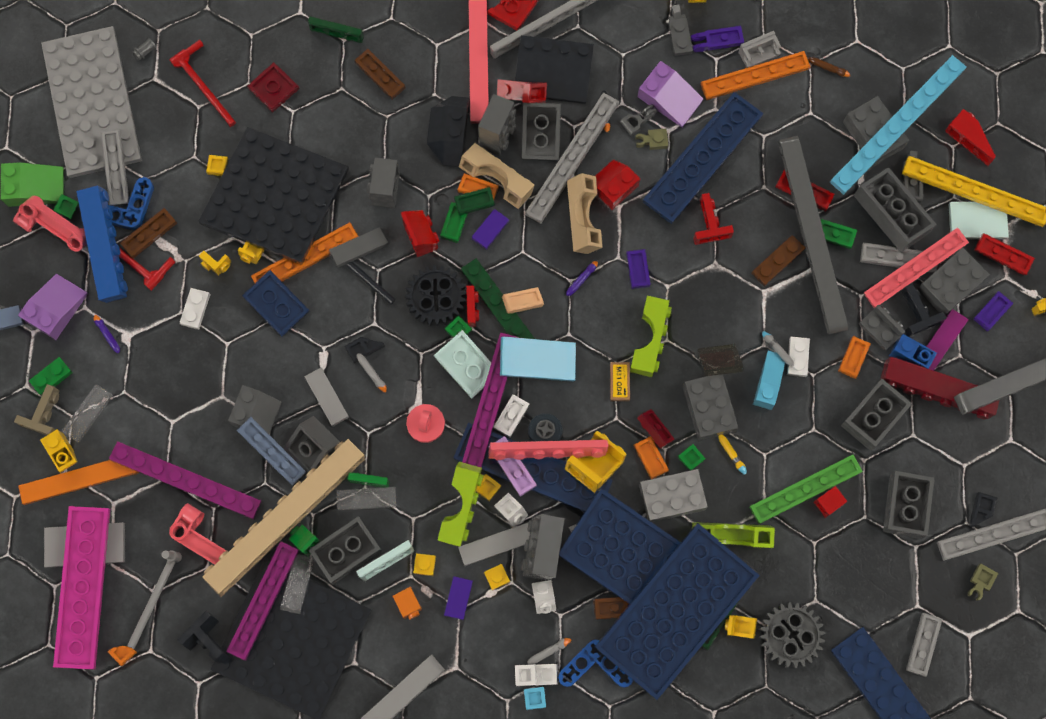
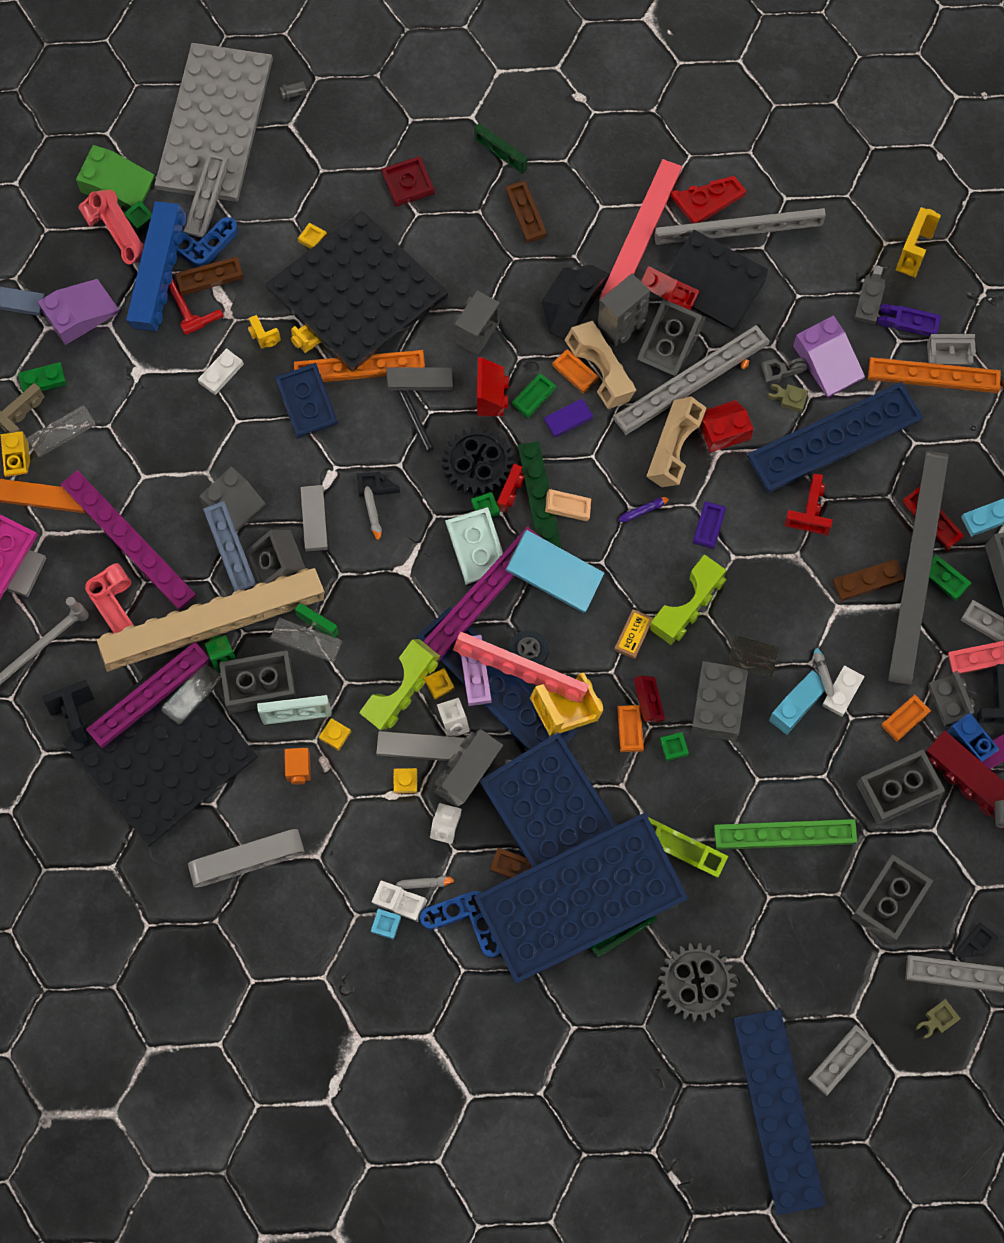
camera: 25 degrees right, 5 degrees down
(106, 333) = (119, 361): dark purple piece -> none
(181, 60) = (325, 116): red bar -> none
(425, 423) = (405, 589): coral tile -> none
(458, 598) = (354, 784): dark purple tile -> none
(474, 201) = (564, 381): dark green tile -> none
(511, 416) = (499, 619): white plate -> none
(673, 496) = (634, 777): light grey brick -> none
(732, 454) = (721, 763): yellow piece -> none
(741, 626) = (644, 947): yellow bracket -> none
(830, 501) = (805, 858): red panel -> none

